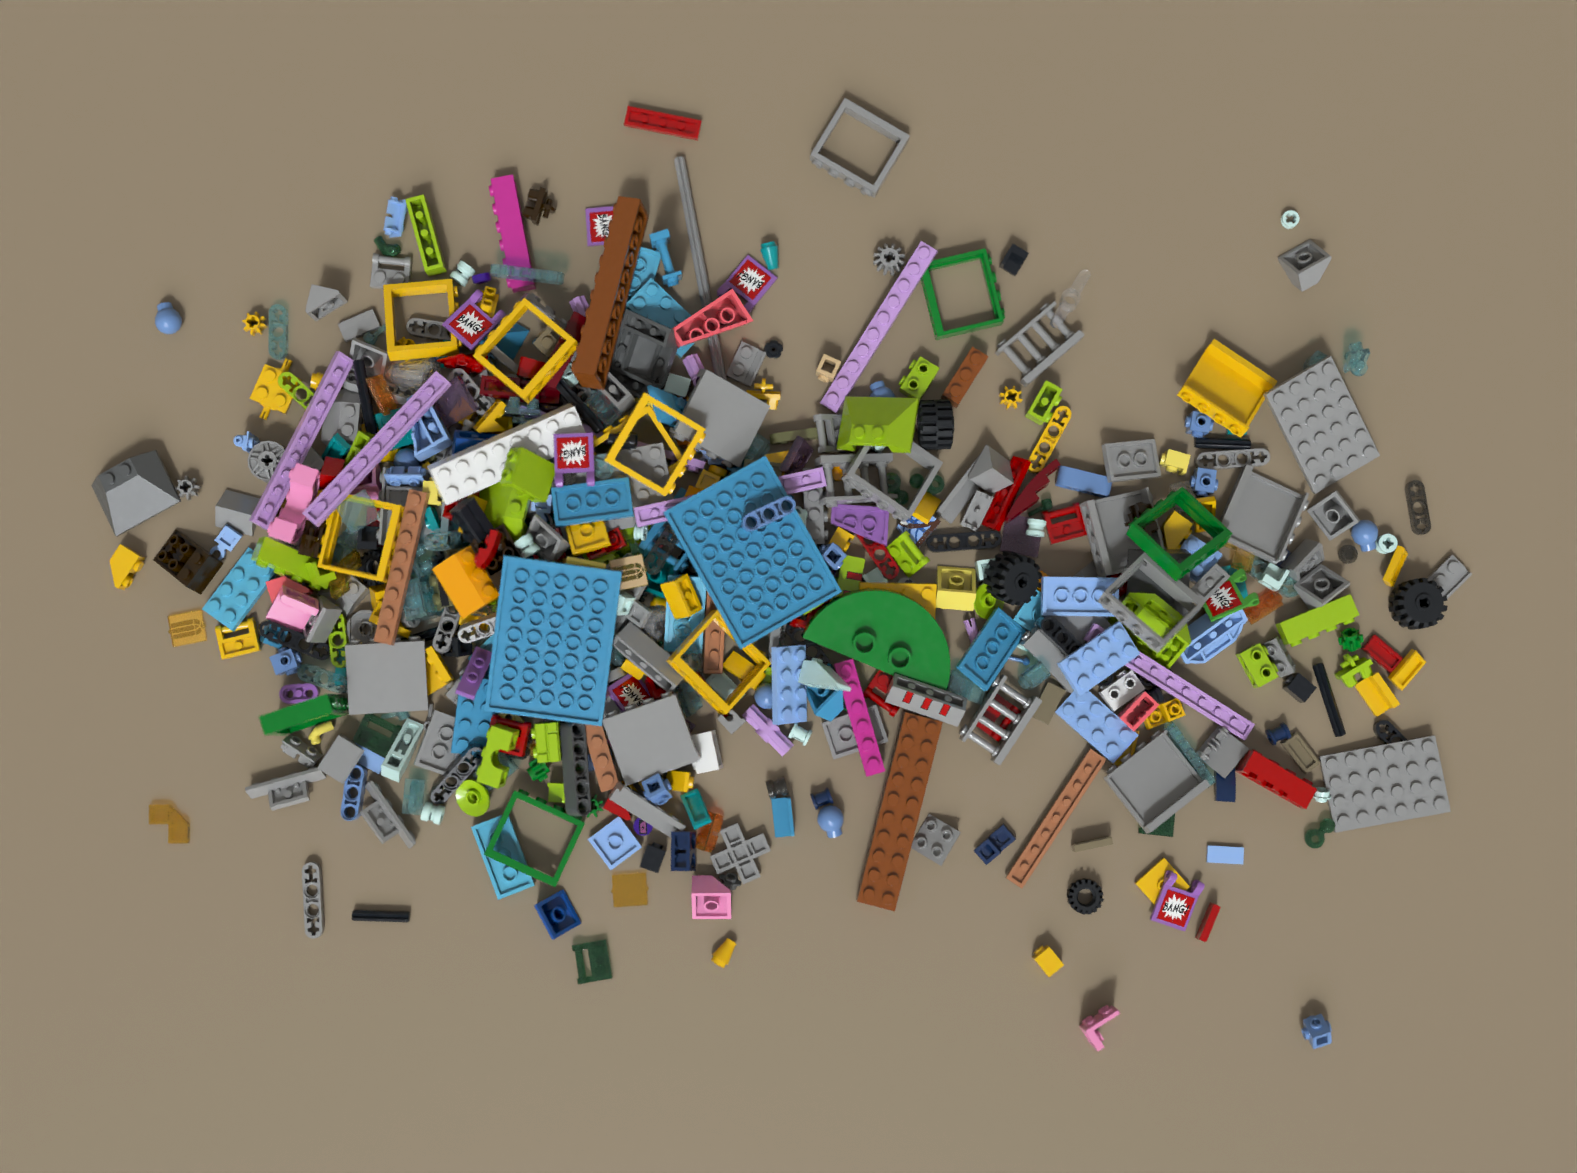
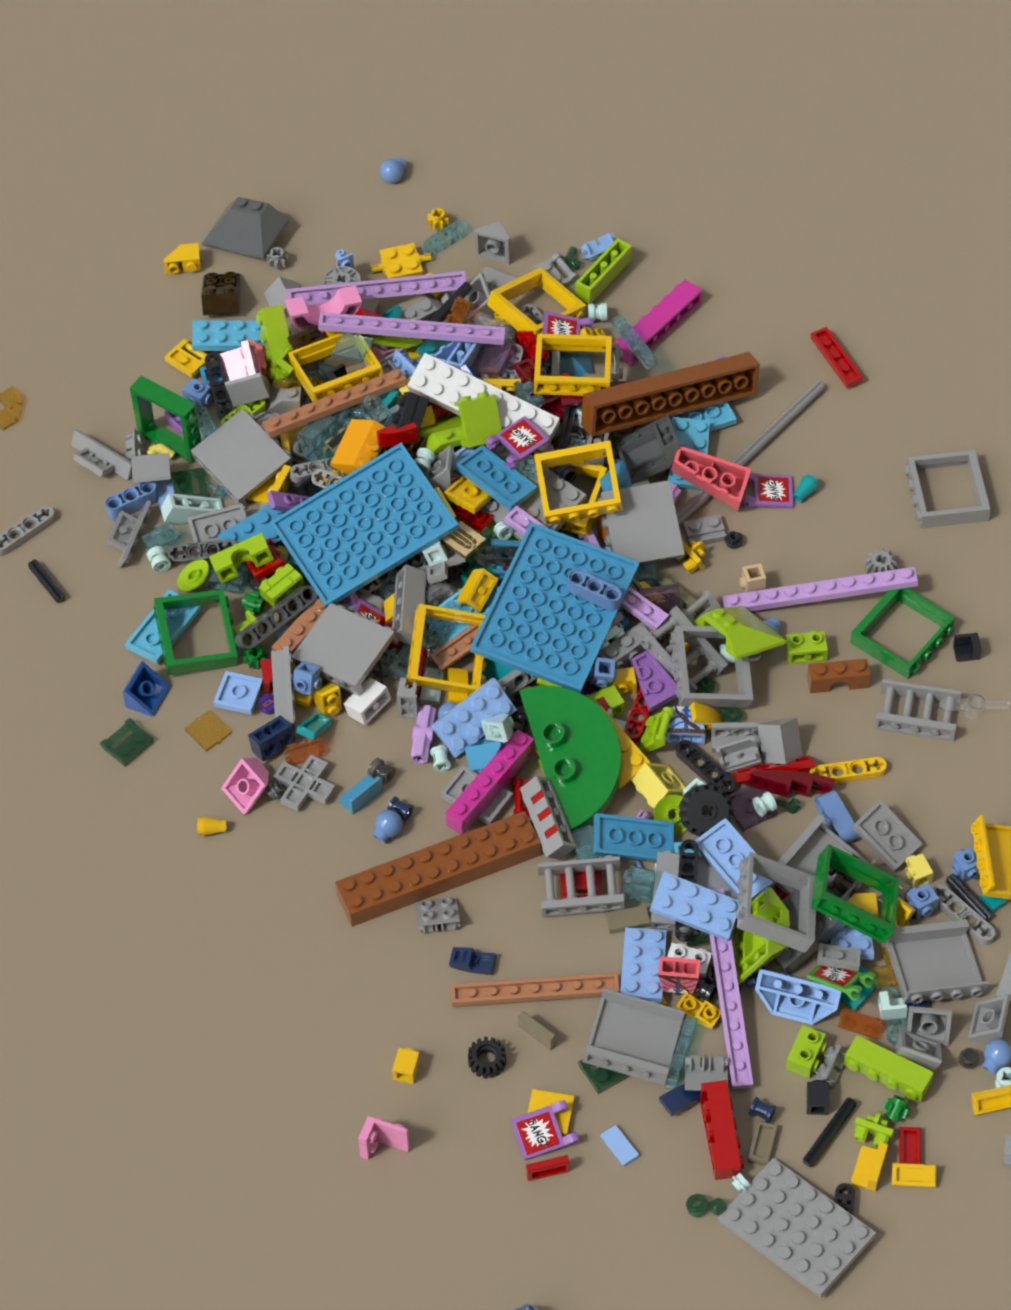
camera: 60 degrees right, 30 degrees down
(187, 628) = (169, 326): clear yellow piece -> none
(227, 540) = (256, 304): light blue plate -> none
(286, 388) = (417, 255): lime beam -> none
(481, 278) = (606, 325): dark purple tile -> none
(534, 214) = (696, 325): dark brown hips -> none
(653, 857) = (247, 723): black brick -> none
(659, 241) = (733, 407): dark azure fence -> none
(935, 424) = (778, 674): black wheel -> none
(1012, 392) = (854, 719): yellow gear -> none
(1044, 401) = (872, 741): lime brick -> none
(1066, 529) = (782, 830): red plate -> none
(1411, 613) = (977, 1137): black wheel -> none

